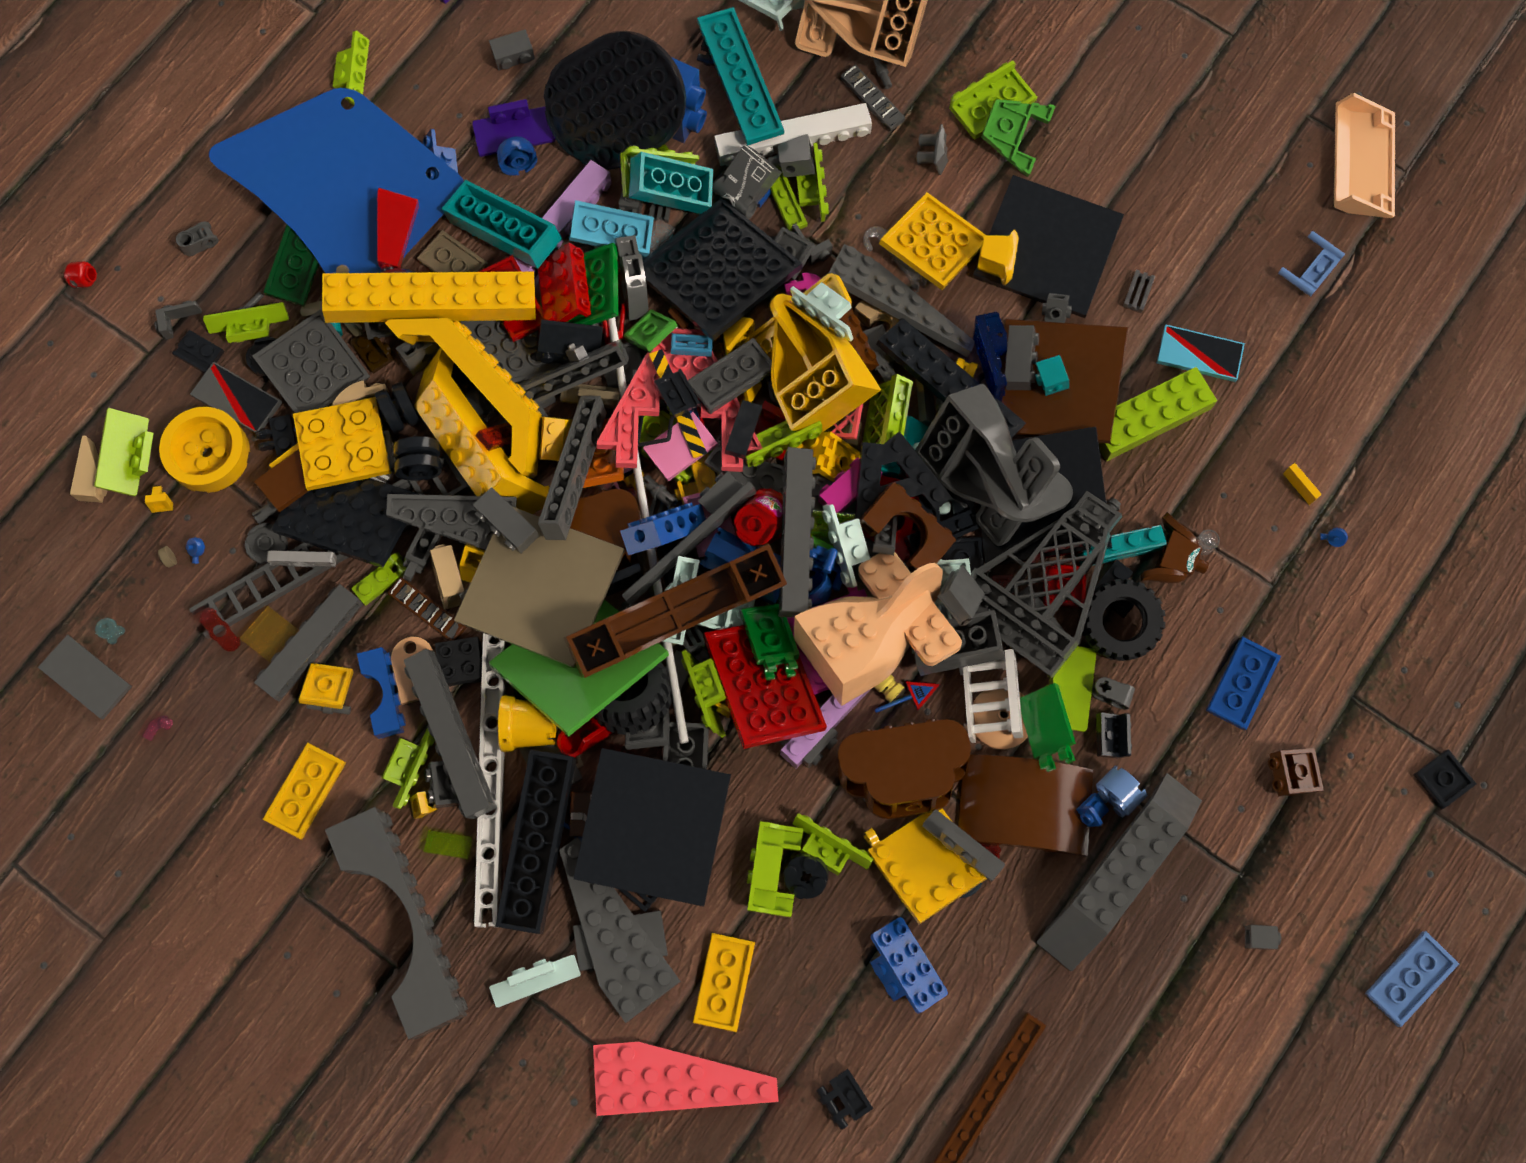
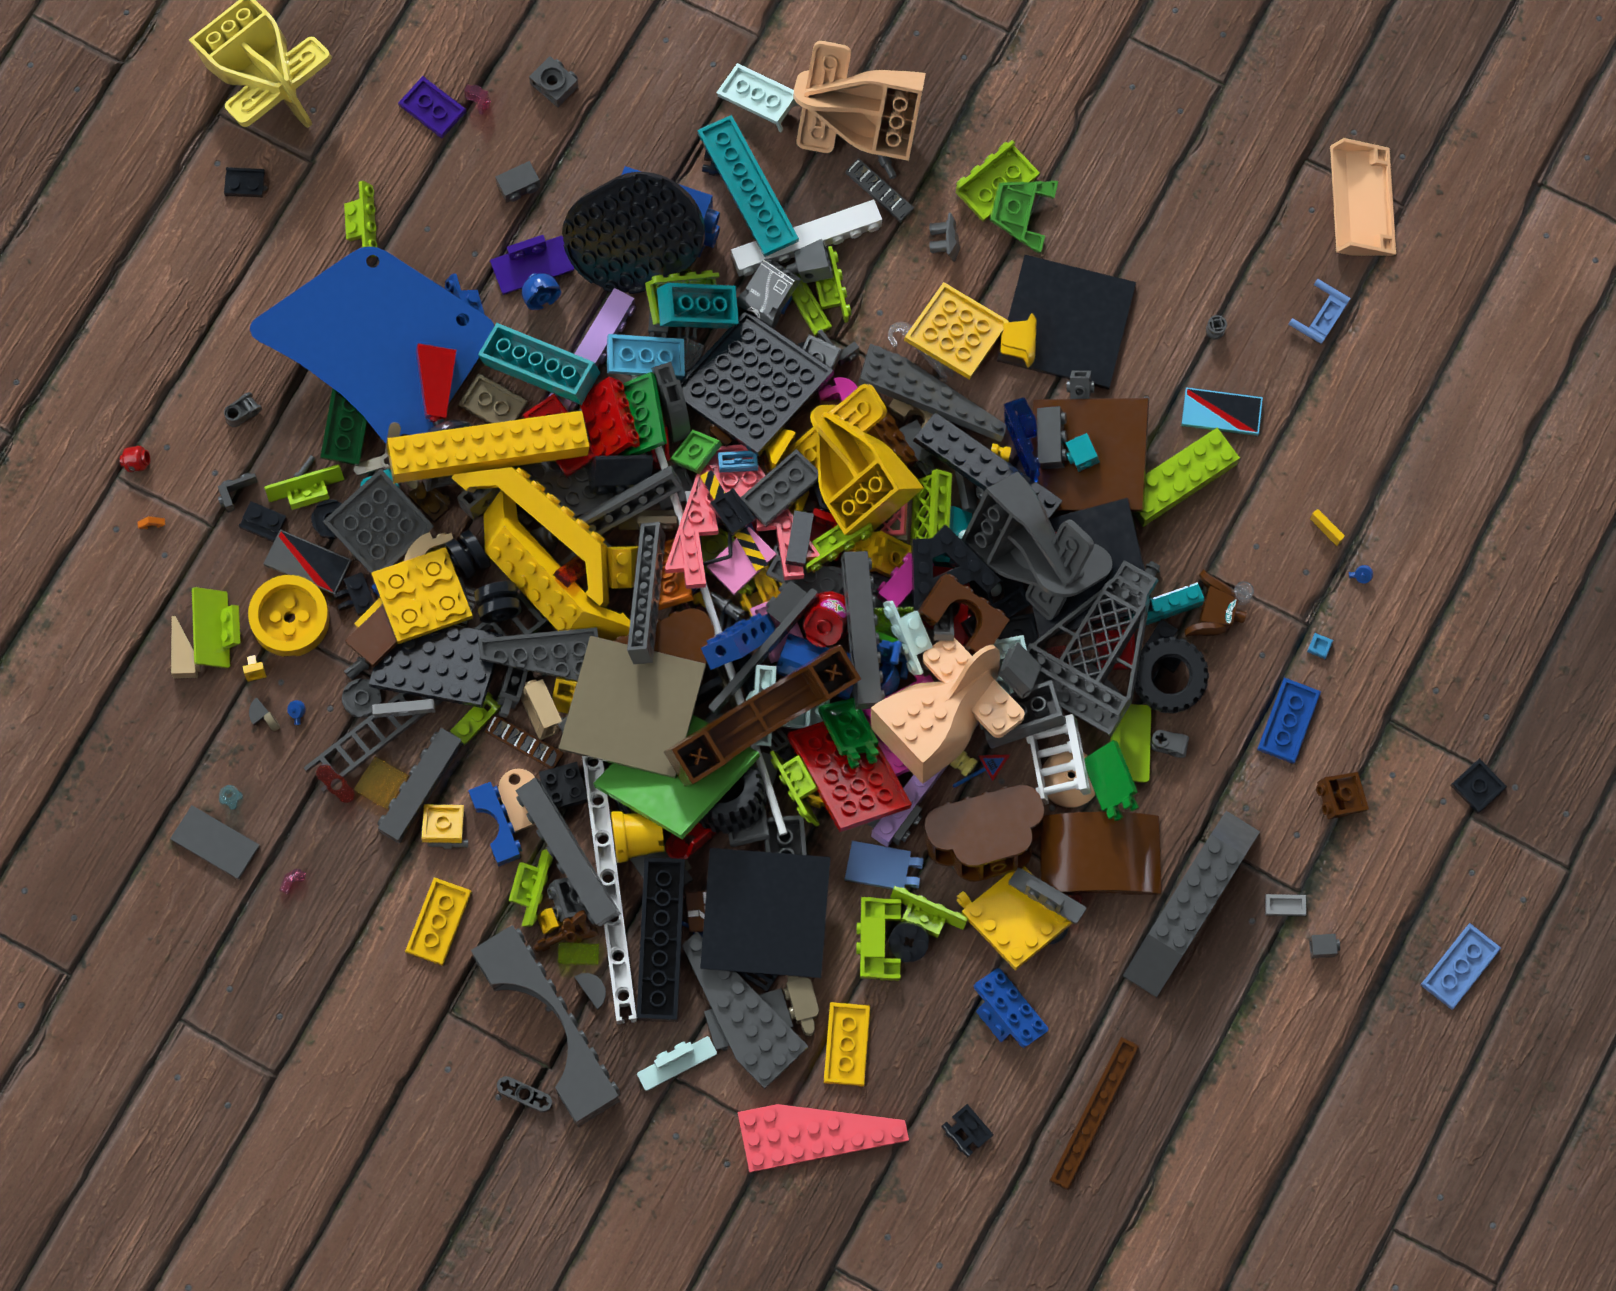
camera: 10 degrees left, 0 degrees up
(82, 338) = (151, 521): none -> orange tile
(154, 543) = (257, 711): none -> dark grey tile
(243, 22) = (244, 182): none -> black plate
(374, 1009) = (508, 1093): none -> dark grey beam
(440, 820) = (569, 932): none -> reddish brown piece
(457, 884) = (593, 988): none -> dark grey tile
(505, 521) = (593, 651): dark grey brick -> none
(575, 353) = (631, 483): flat silver piece -> none
(682, 930) = (803, 1002): none -> dark tan hinge
(787, 788) = (881, 866): none -> medium blue tile
(826, 306) = (863, 415): light aqua bracket -> none
(1092, 810) = (1161, 852): blue bracket -> none
(1113, 735) = (1173, 782): black bracket -> none
(1120, 791) = (1184, 831): medium blue brick -> none
(1144, 277) = (1161, 342): flat silver tile -> none
(1202, 267) = (1214, 331): none -> dark grey wheel
(1222, 885) = (1285, 905): none -> light grey tile
(1283, 607) = (1320, 646): none -> dark azure tile

